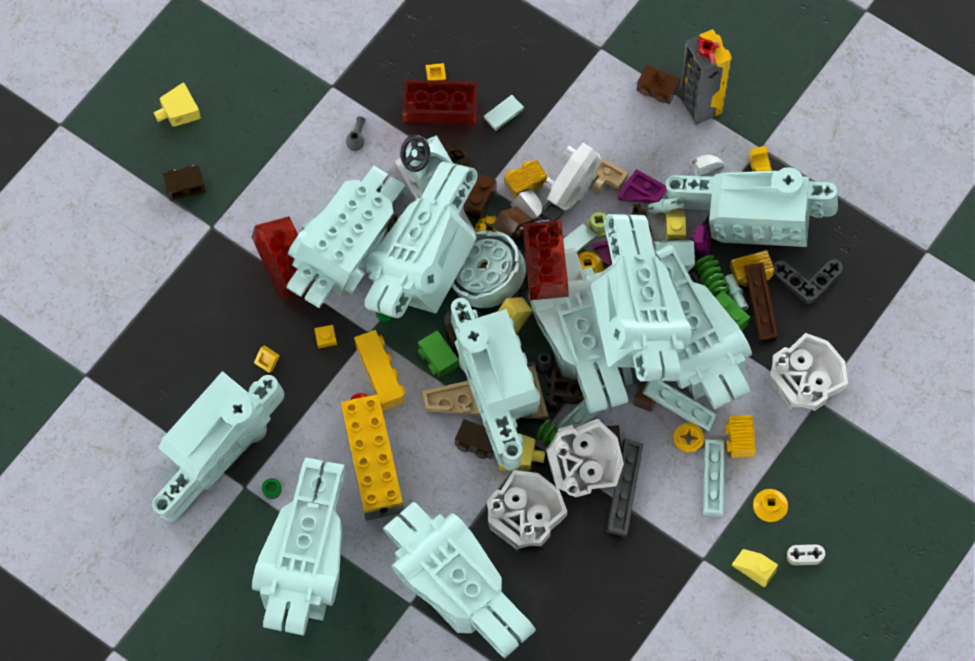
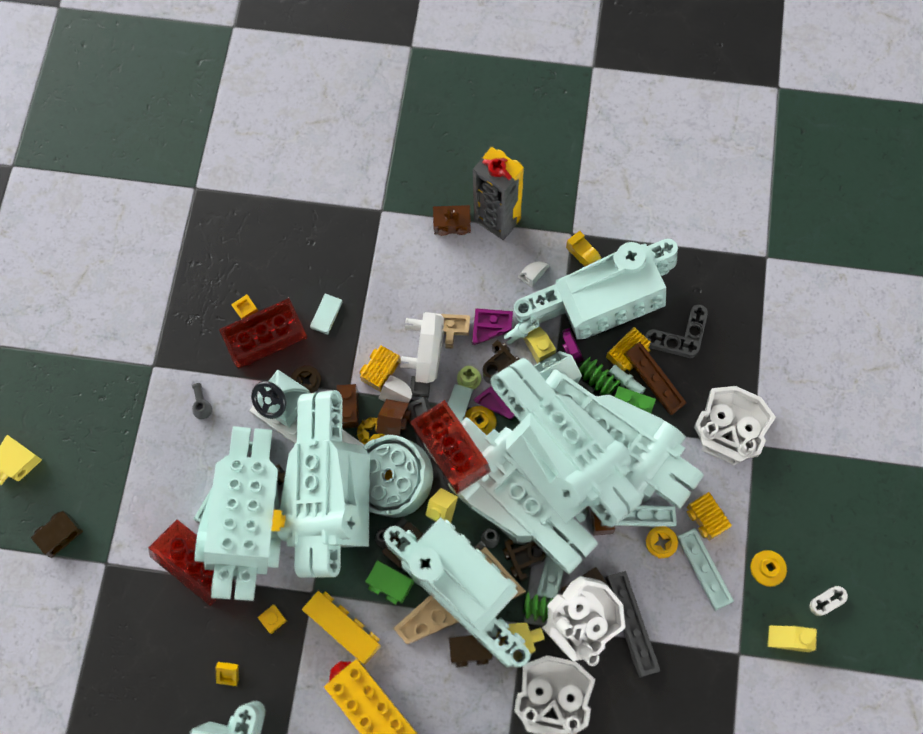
camera: 25 degrees left, 5 degrees up
(372, 251) = (278, 520): none -> yellow plate

